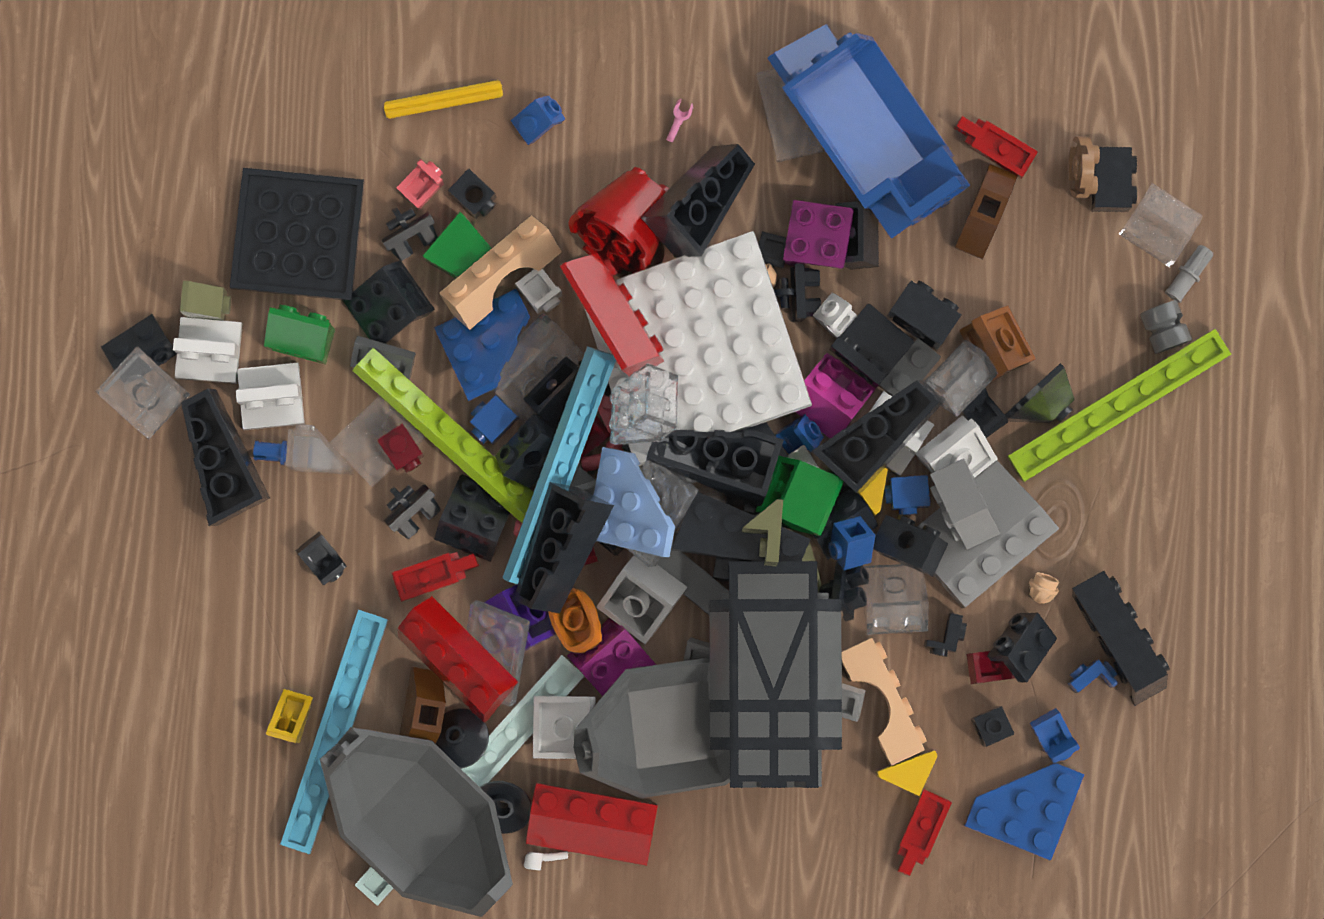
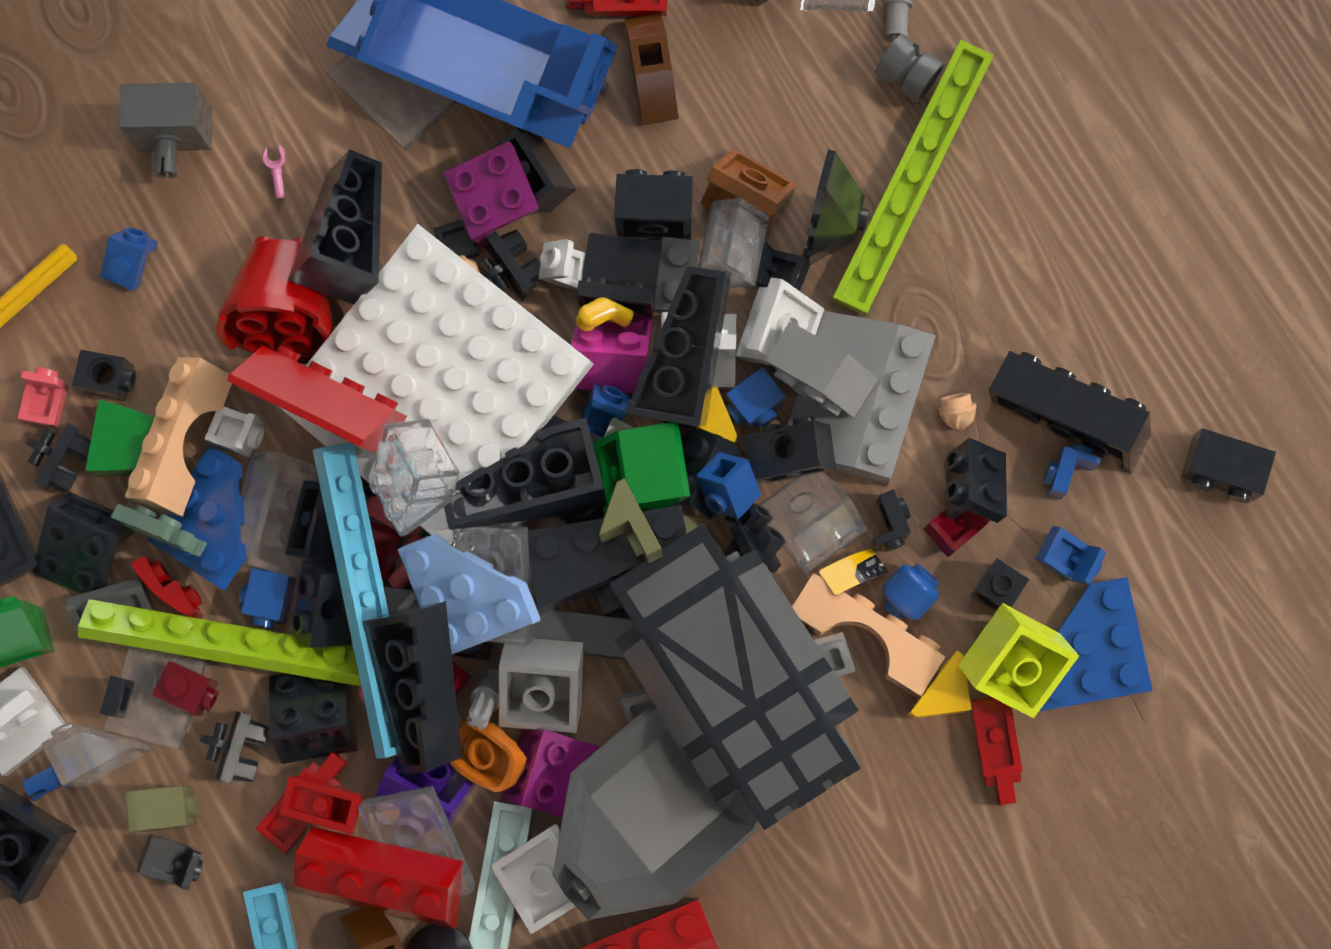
camera: 25 degrees left, 5 degrees down
(339, 521) = (161, 808): none -> olive slope
(353, 427) = (117, 697): none -> black tile
(432, 380) = (175, 594): none -> red slope
(447, 585) = (321, 804): none -> red slope
(451, 332) = (163, 530): none -> sand green plate
(598, 582) = (484, 699): none -> light grey axle
(623, 40) = (166, 121): none -> dark grey brick
(840, 368) = (600, 311): none -> yellow arm
(900, 652) = (852, 571): none -> yellow sticker
(930, 691) = (910, 592): none -> blue head
(970, 783) = (1018, 660): none -> neon yellow brick
(1202, 742) = (1228, 466): none -> black brick

